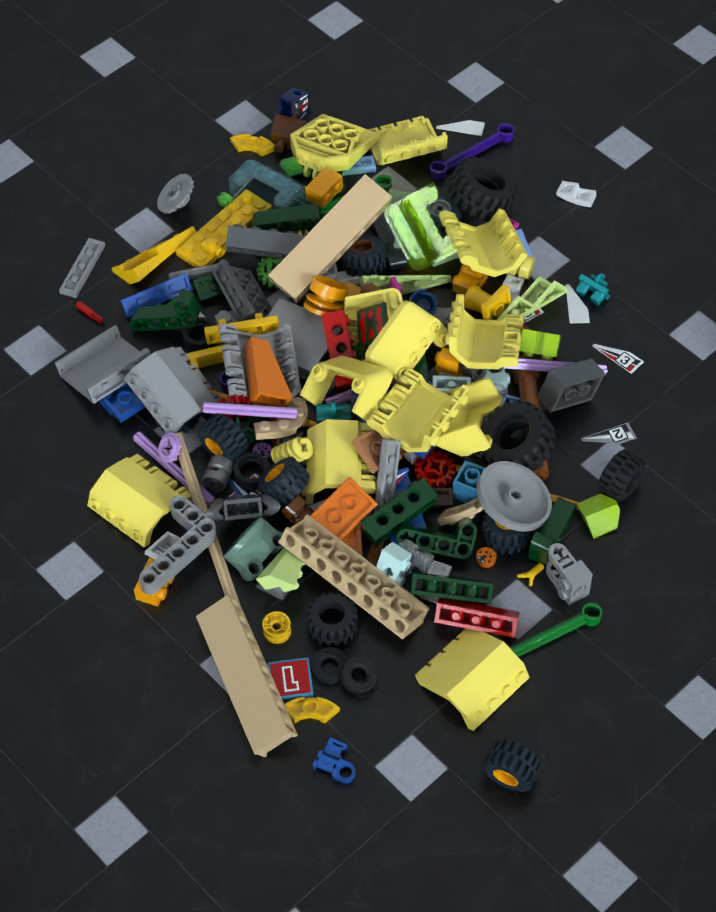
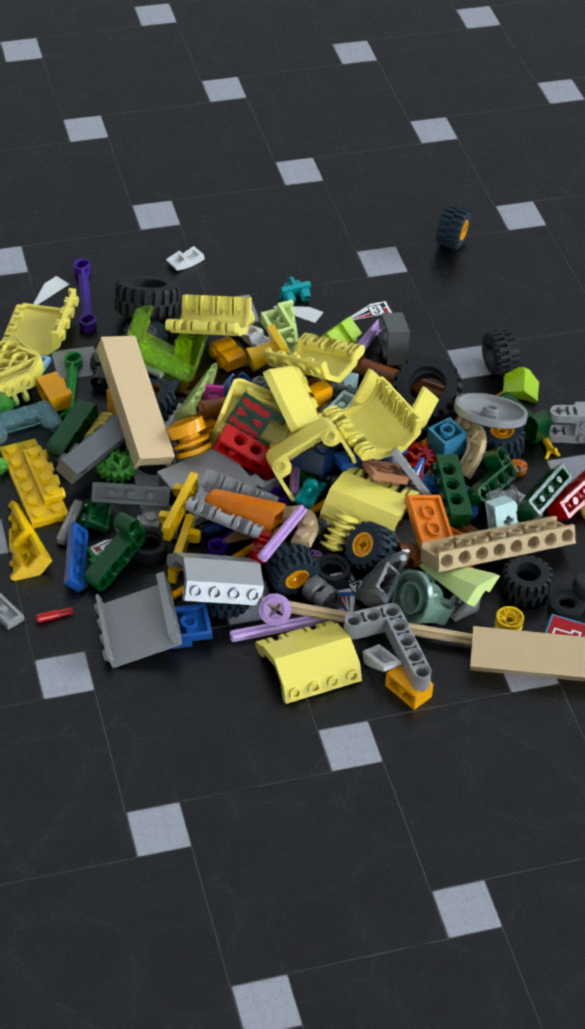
camera: 65 degrees left, 10 degrees down
(617, 435) = (446, 346): sticker -> none

